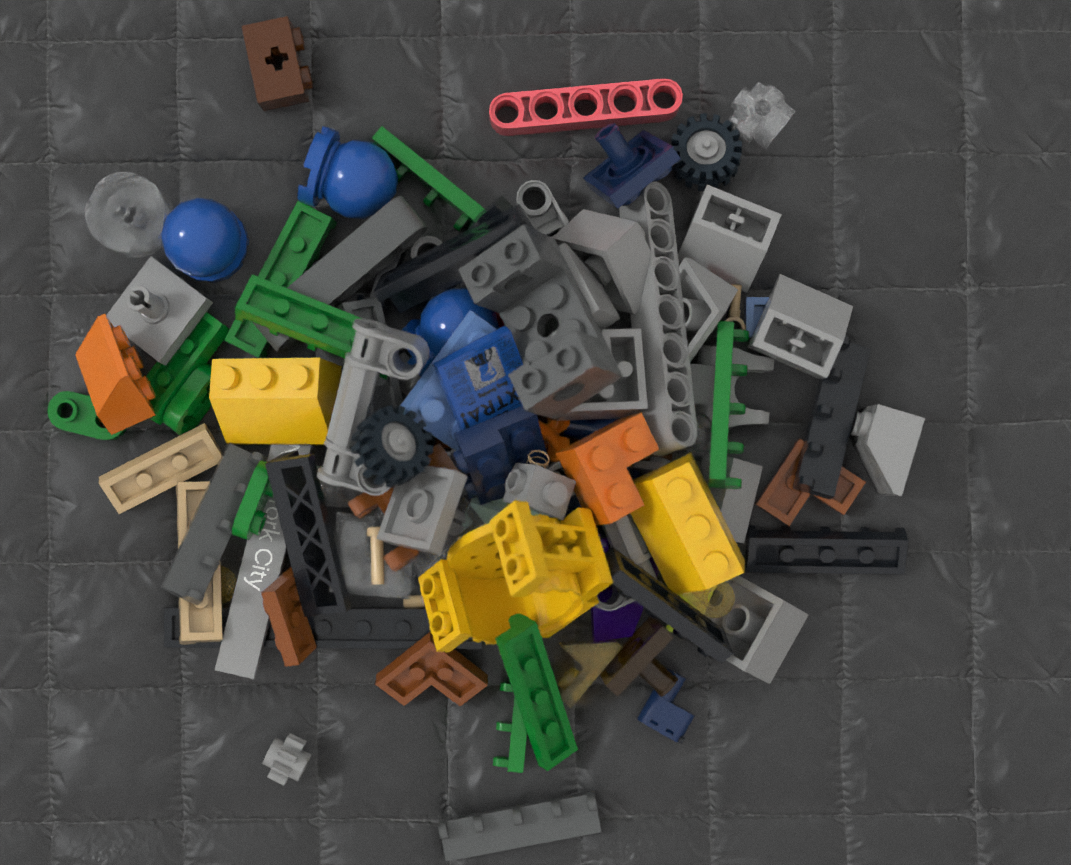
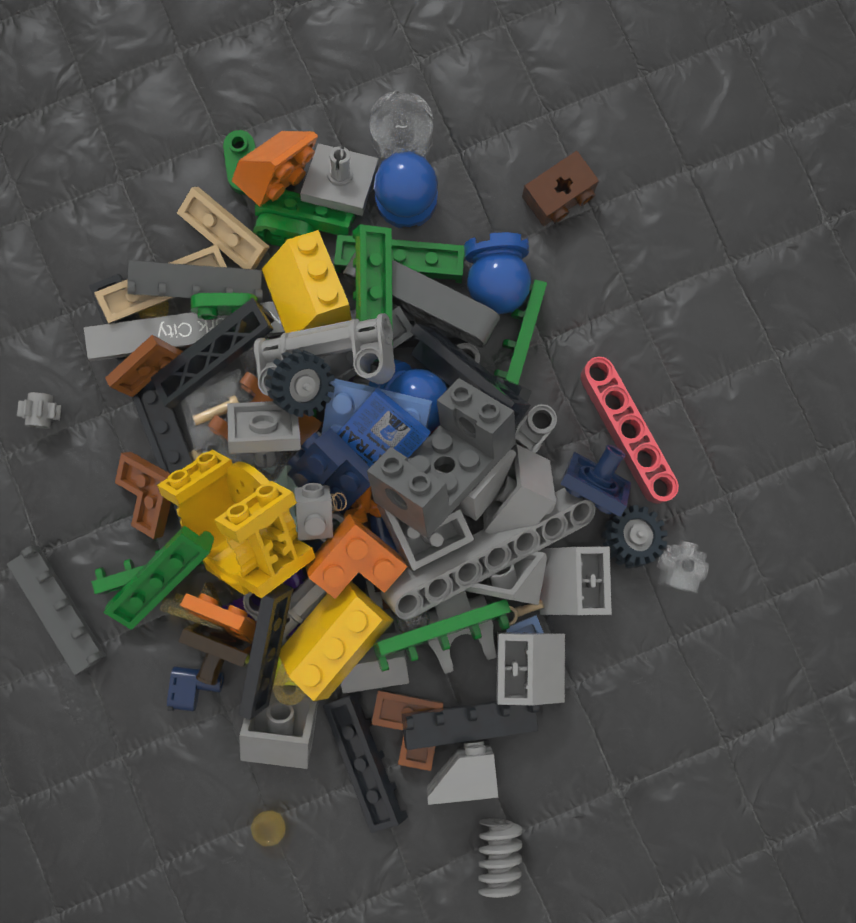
camera: 70 degrees right, 5 degrees down
(619, 629) = (231, 620): none -> orange plate
(853, 683) = (268, 828): none -> clear yellow plate
(987, 443) = (501, 859): none -> light grey piece

